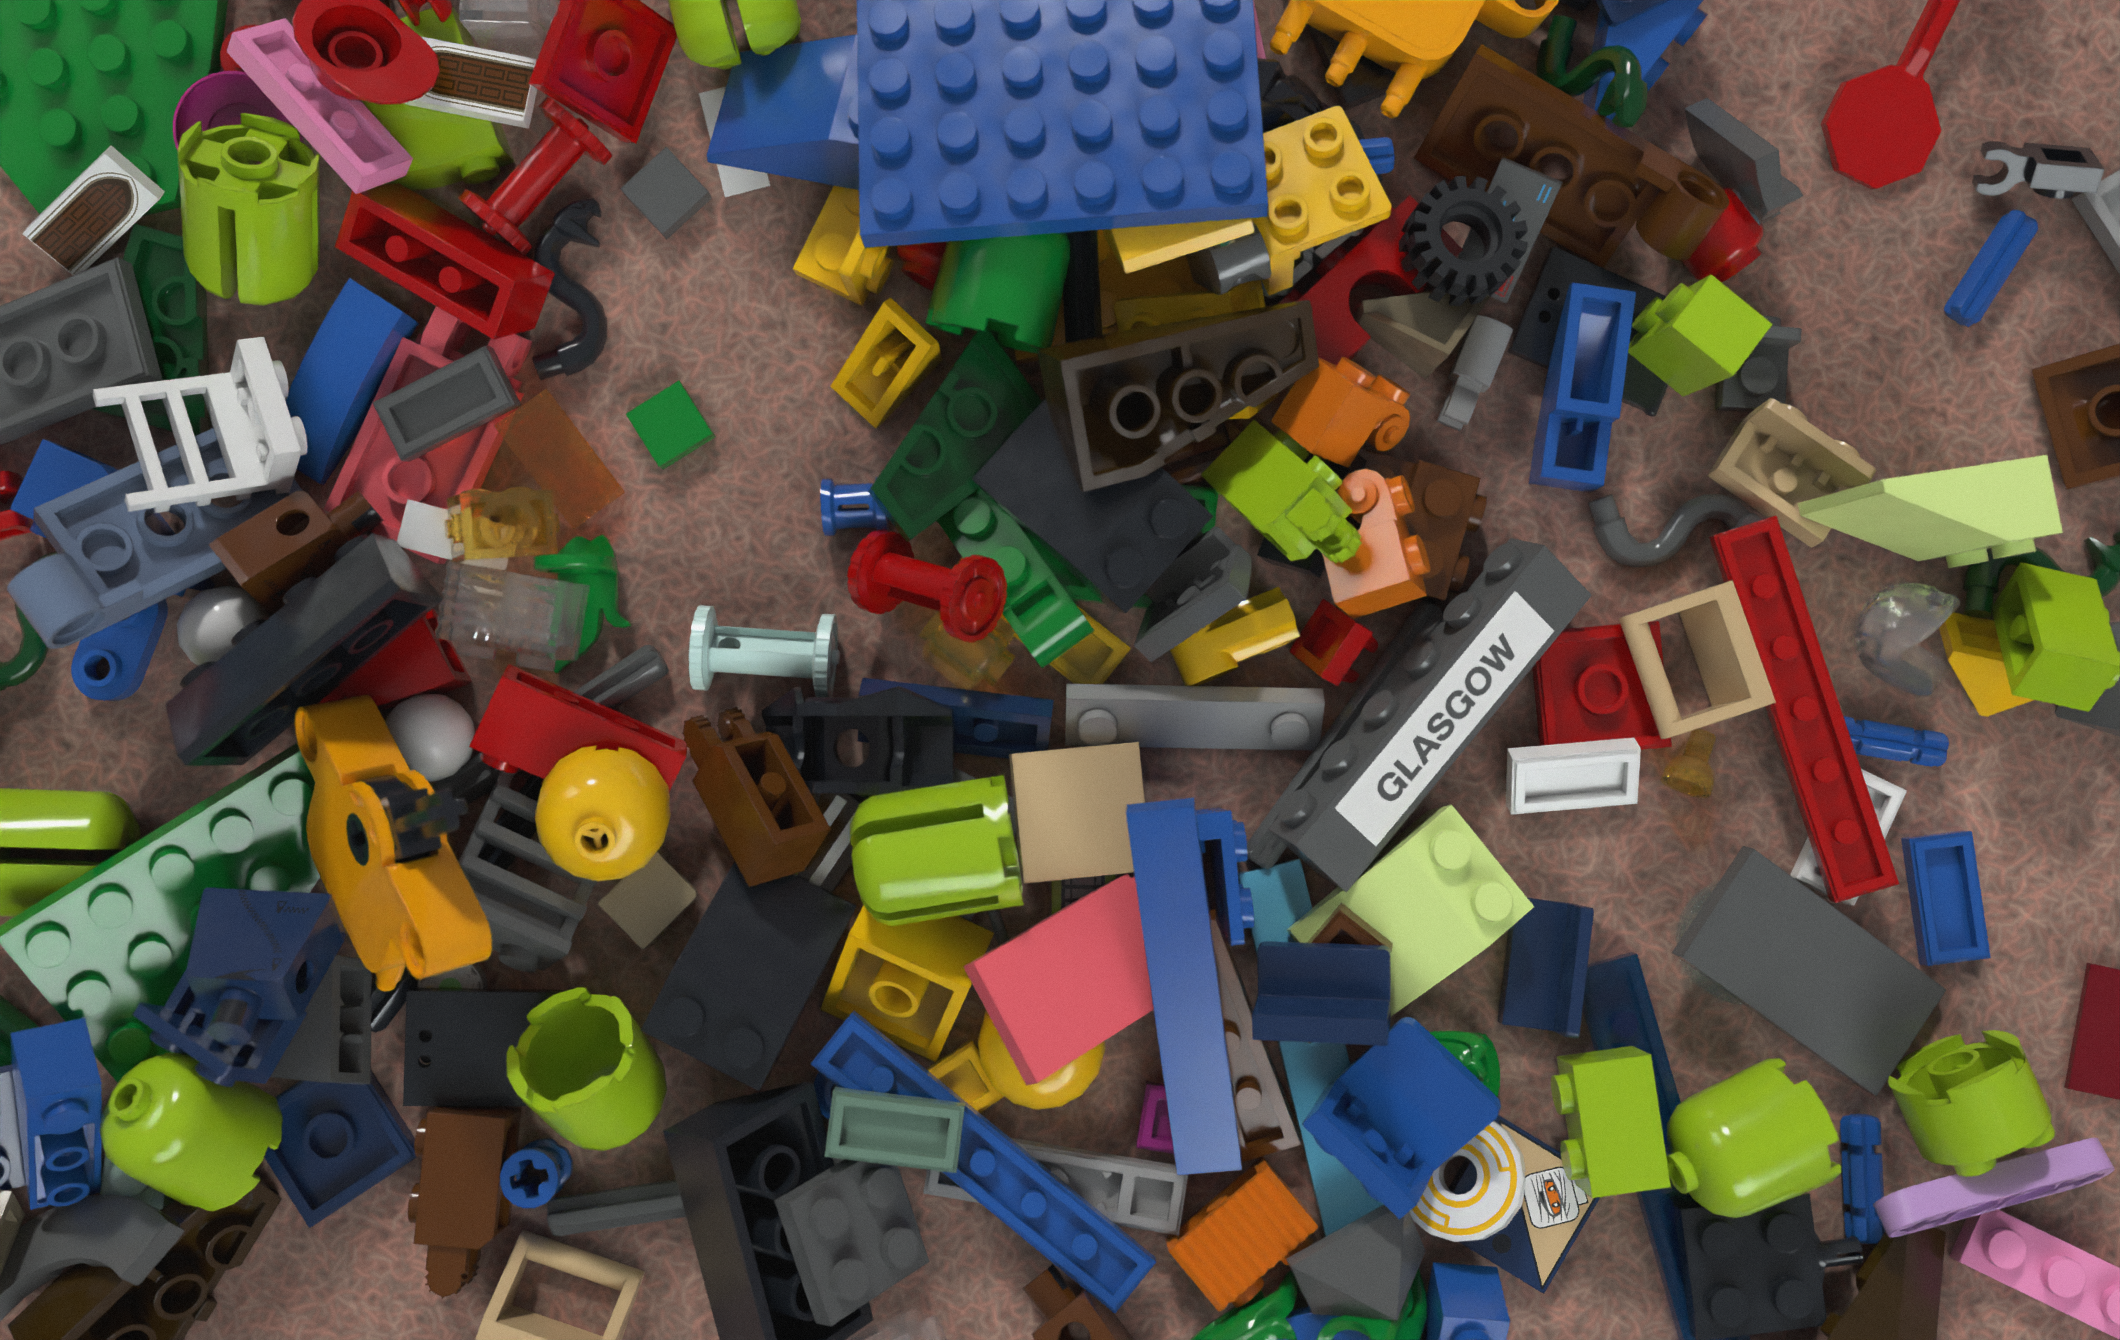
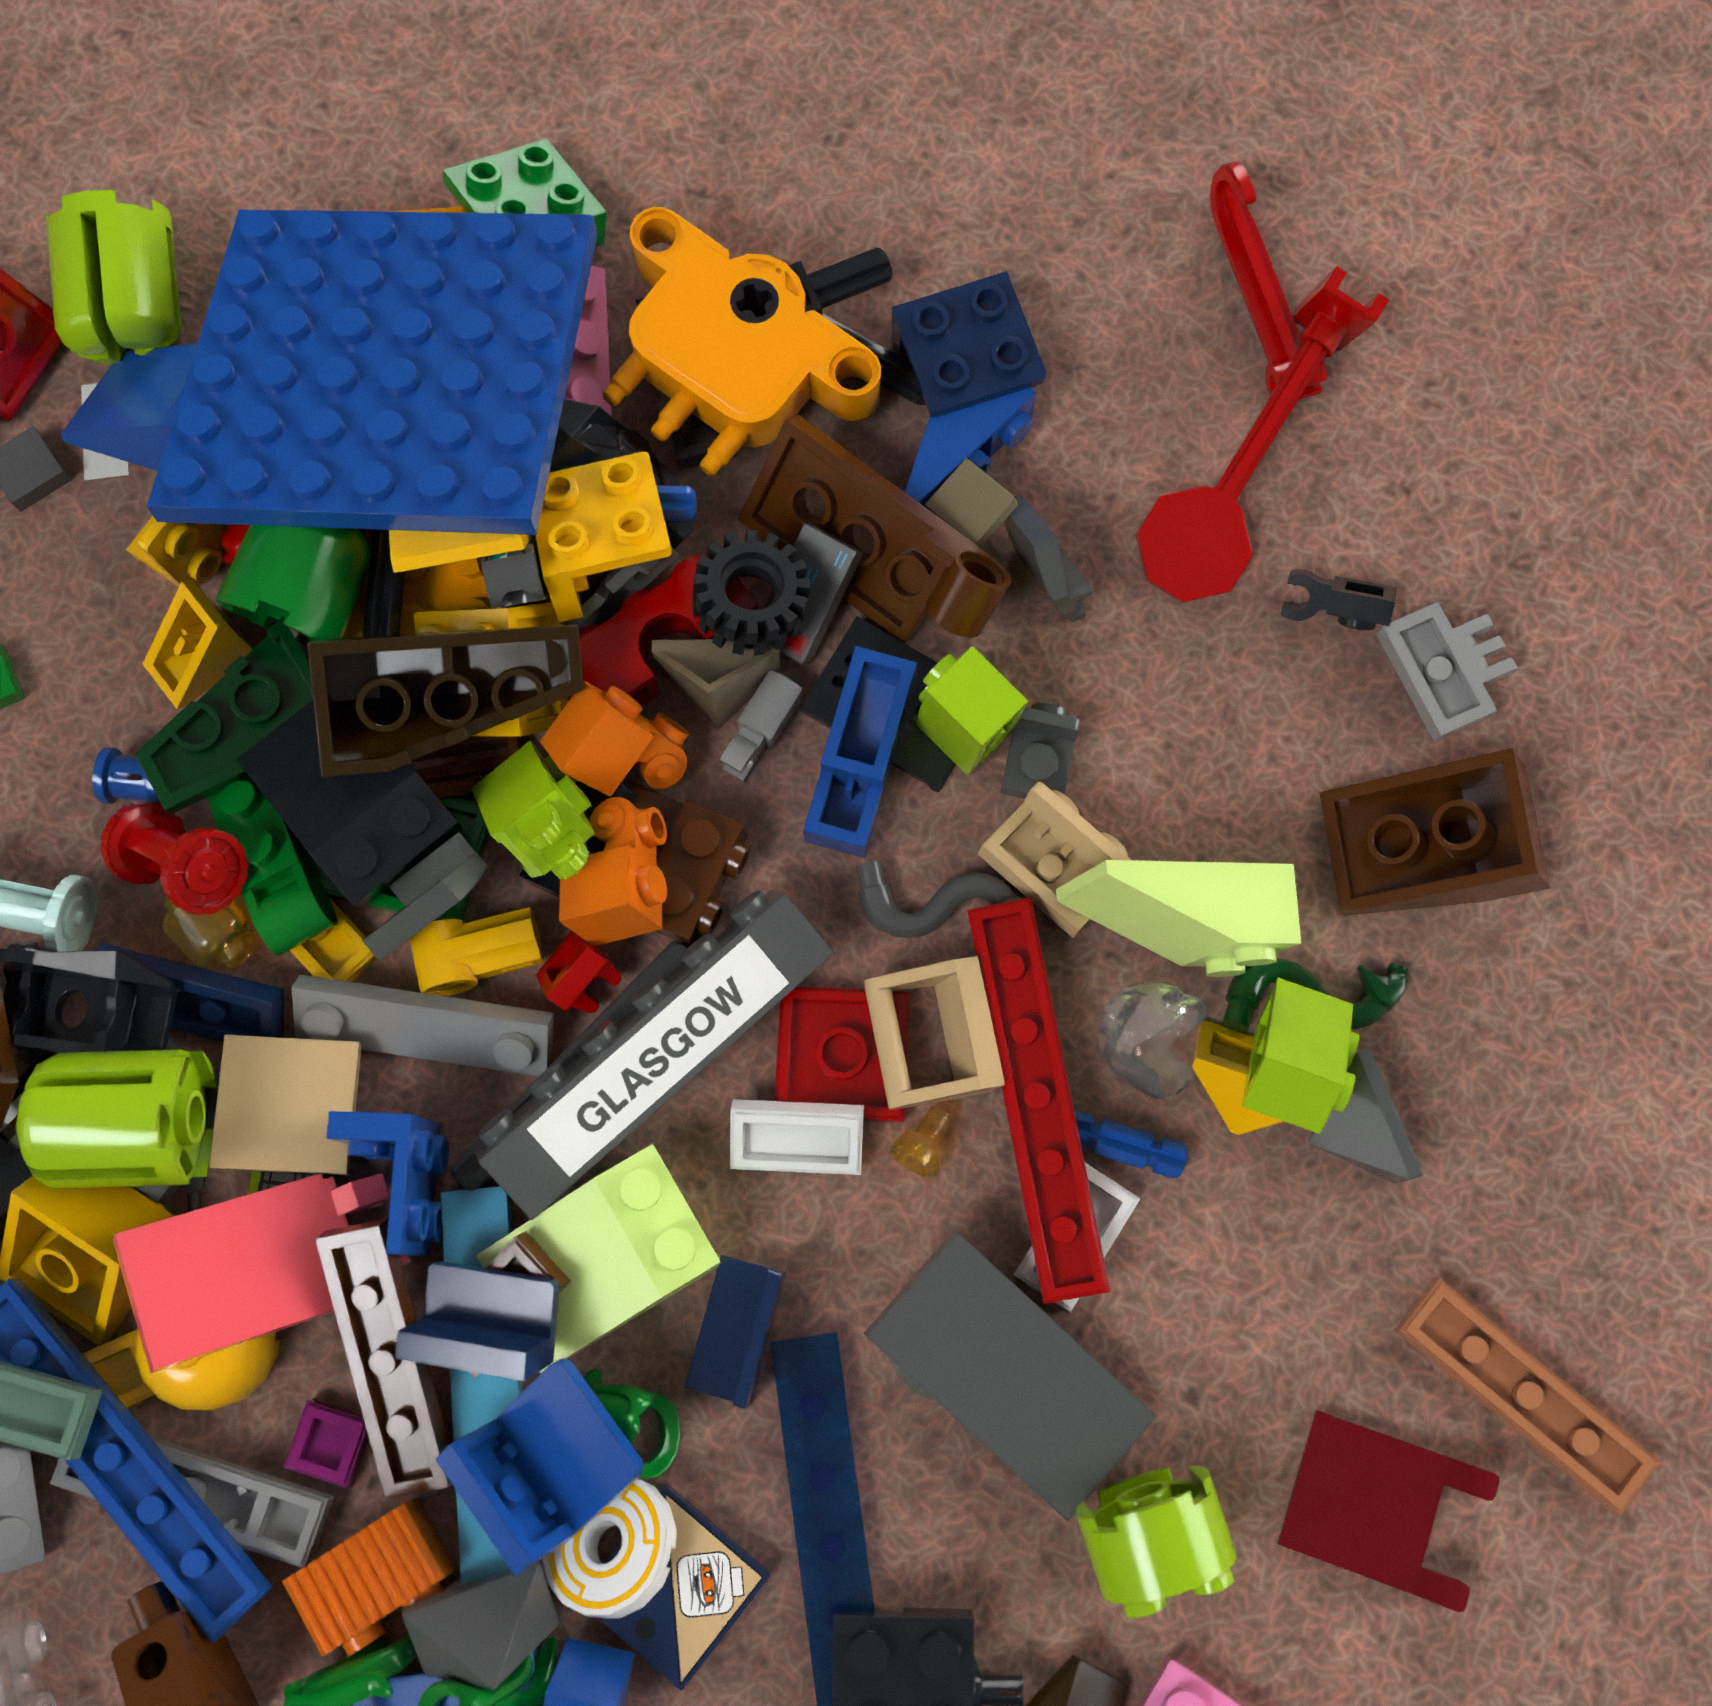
camera: 15 degrees right, 10 degrees down
(1184, 985) = (338, 1295): blue tile -> none
(1611, 1122) = (770, 1507): lime brick -> none
(1625, 93) = (909, 456): dark green animal -> none
(1673, 116) = (973, 504): none -> dark tan panel
(1729, 243) = (1019, 626): red head -> none
(1751, 1142) = (906, 1550): lime cylinder -> none
(1862, 1176) = (1043, 1611): blue axle -> none
(1945, 898) = (1170, 1319): blue tile -> none
(1991, 268) = (1288, 689): blue axle -> none
(2003, 1186) = (1172, 1639): lavender beam -> none

